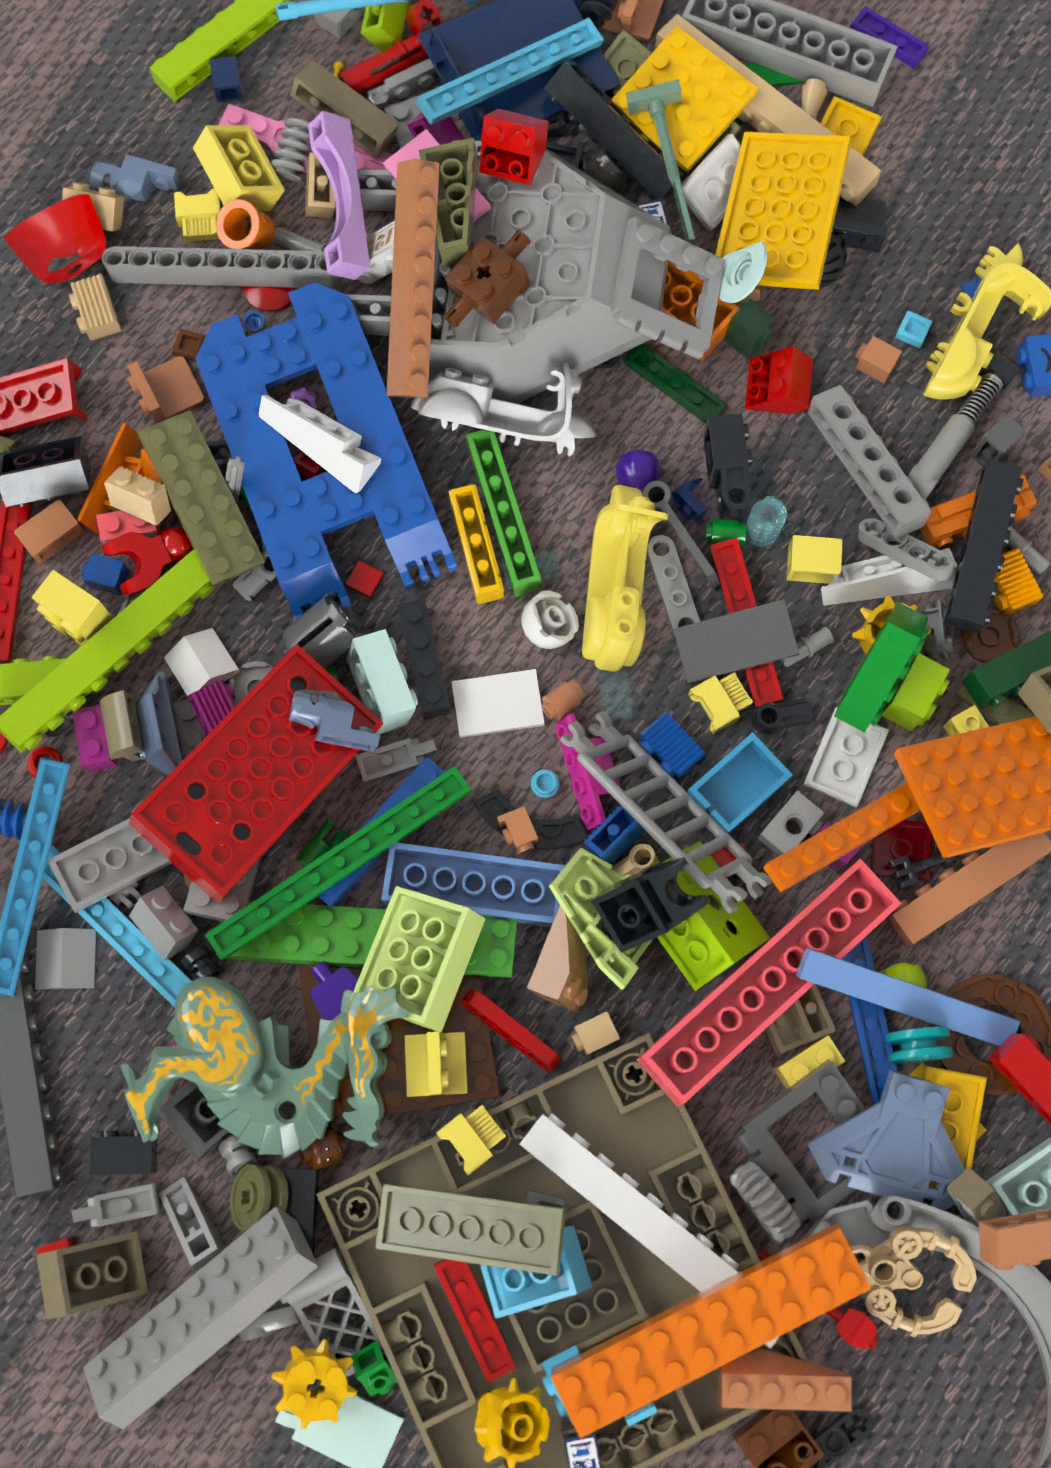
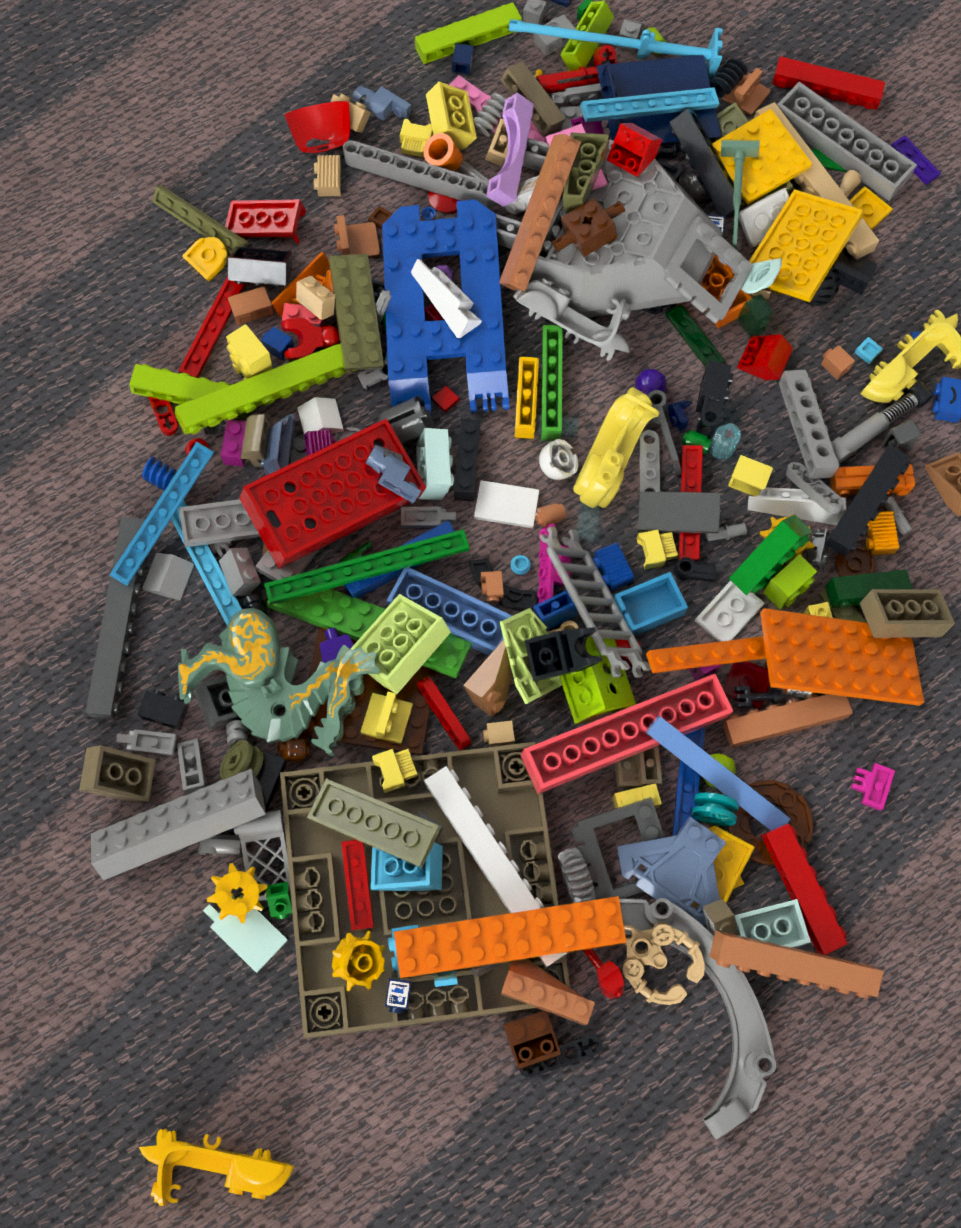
camera: 15 degrees right, 5 degrees down
(798, 810) = (683, 633): light grey brick -> none

